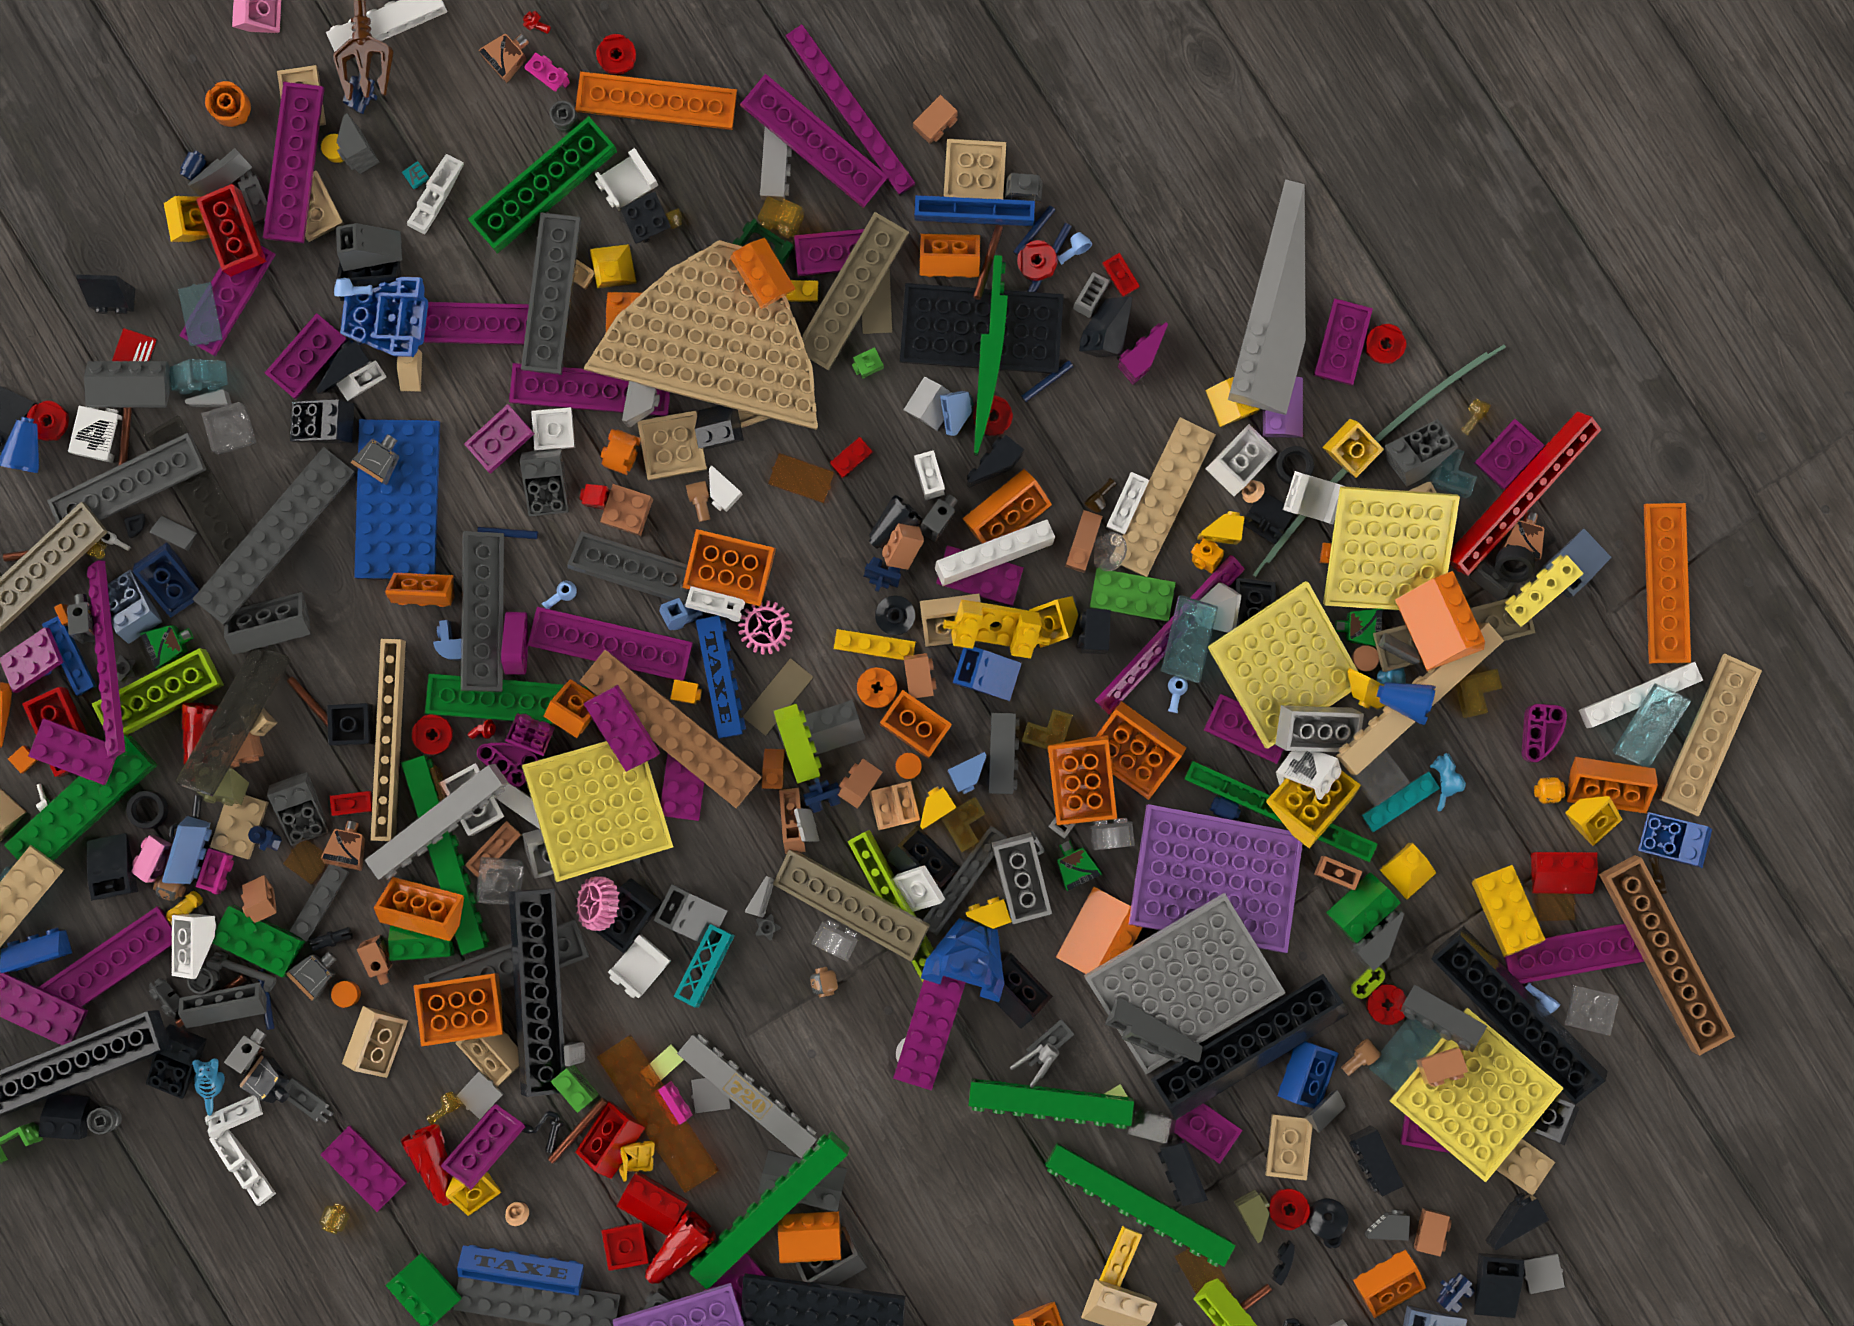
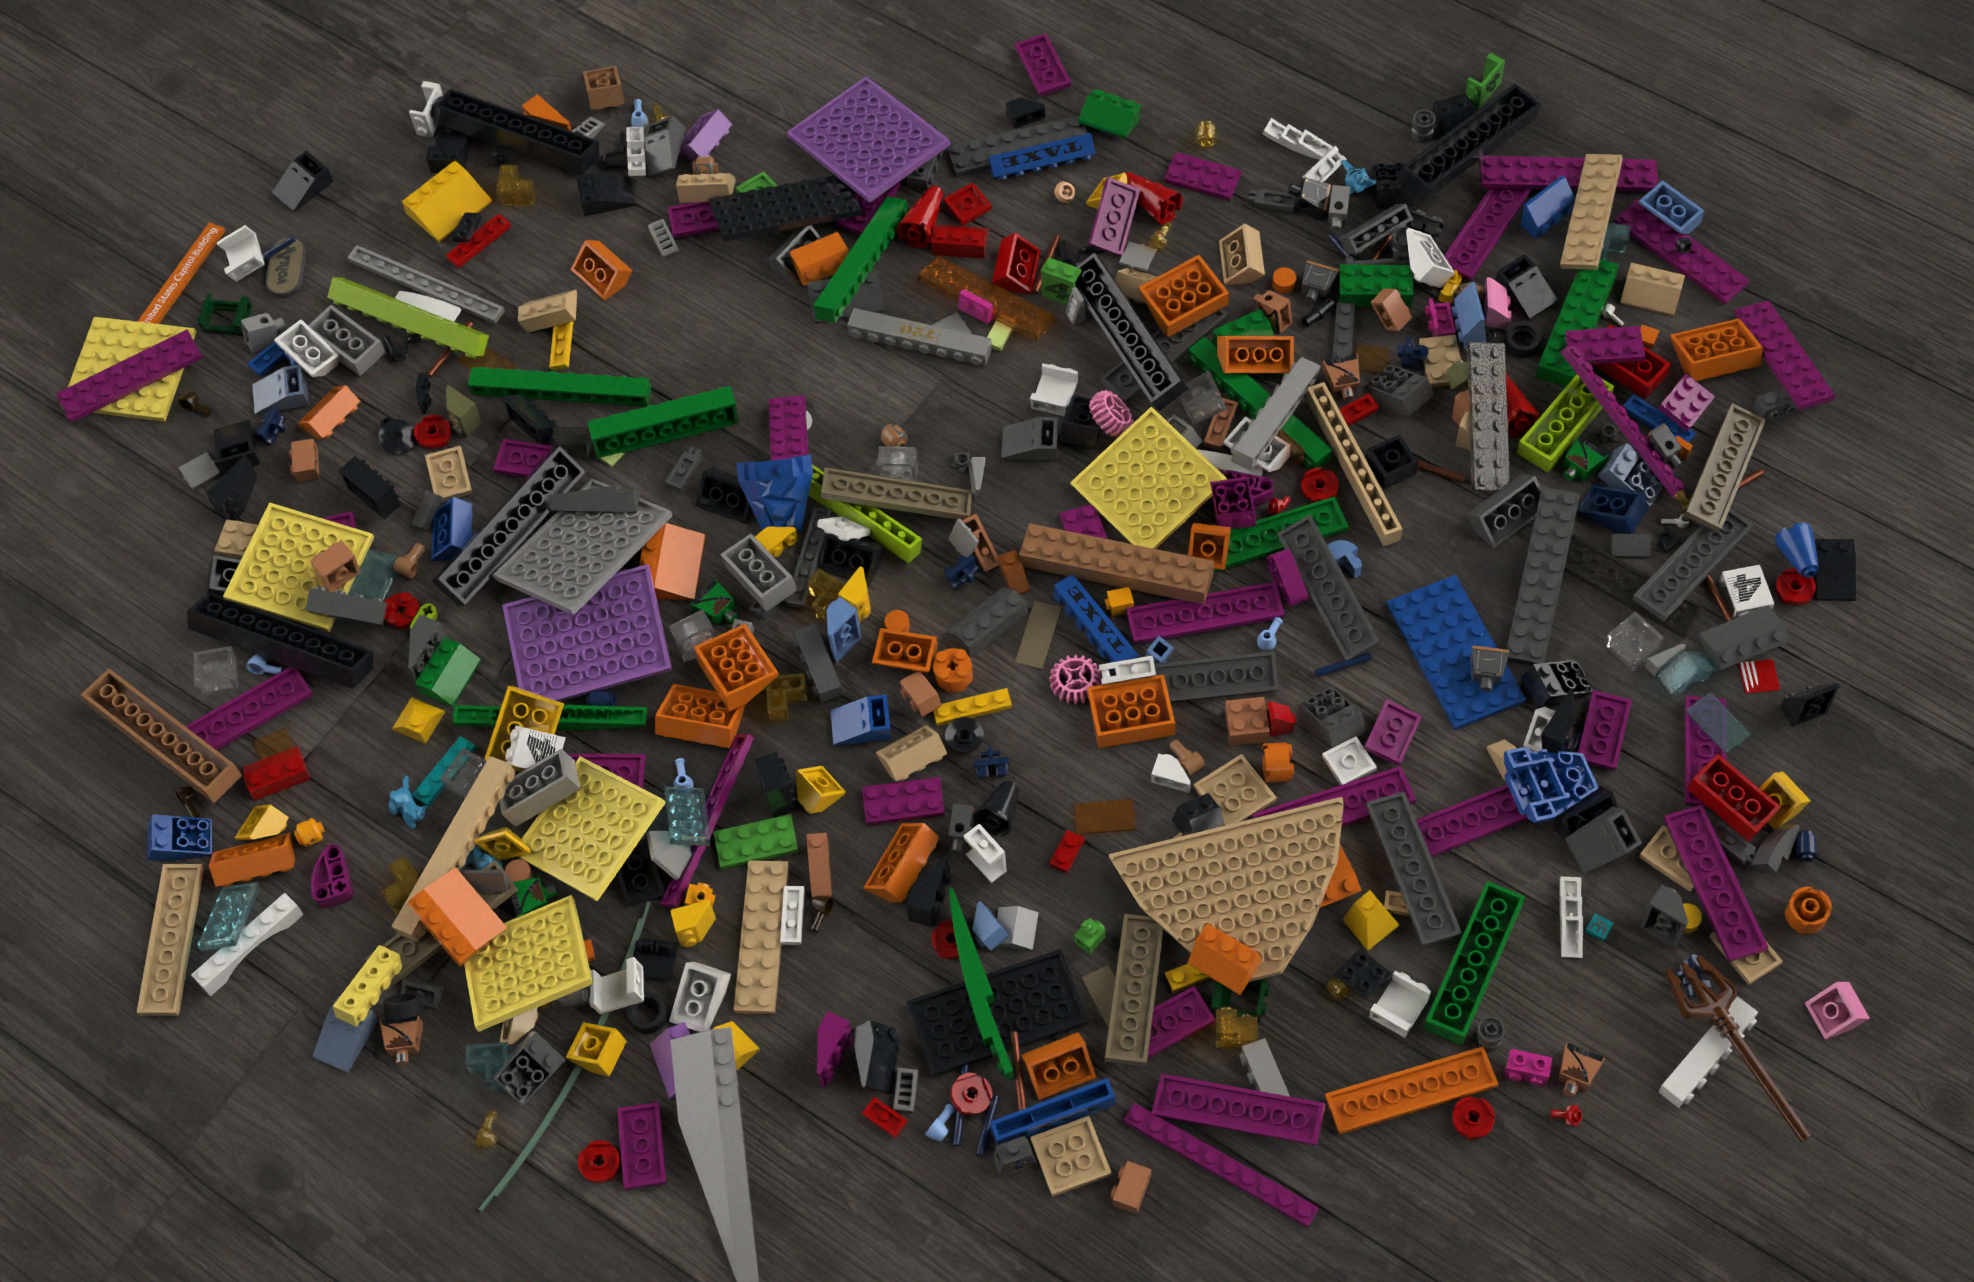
camera: 160 degrees right, 25 degrees down
(345, 288) = (1598, 785): light blue bar -> none
(421, 589) = (1391, 582): orange slope -> none
(621, 728) = (1157, 540): magenta plate -> none
(639, 403) = (1281, 797): light grey slope -> none
(641, 1158) = (987, 260): yellow piece -> none
(711, 969) = (993, 409): teal fence -> none
(797, 744) = (1000, 590): lime brick -> none
(860, 783) = (933, 588): nougat brick -> none
(894, 805) = (895, 590): light nougat slope -> none
(903, 546) = (982, 786): nougat brick -> none
(994, 552) = (896, 816): white brick -> none
(1017, 627) = (847, 764): yellow brick -> none
(1046, 381) = (915, 992): dark blue bar -> none
(1047, 1055) = (681, 453): light grey plant -> none
(1109, 551) = (791, 865): clear dish -> none
(1253, 491) = (675, 972): light nougat hat -> none
(1338, 873) = (480, 687): nougat brick -> none
(1390, 1226) = (342, 449): dark grey slope -> none
(1408, 699) = (463, 828): blue cone -> none
(1508, 454) = (442, 1109): magenta plate -> none
(1508, 911) = (316, 716): yellow brick -> none
(1523, 492) = (415, 1076): red brick -> none
(1667, 583) = (250, 1056): orange plate -> none

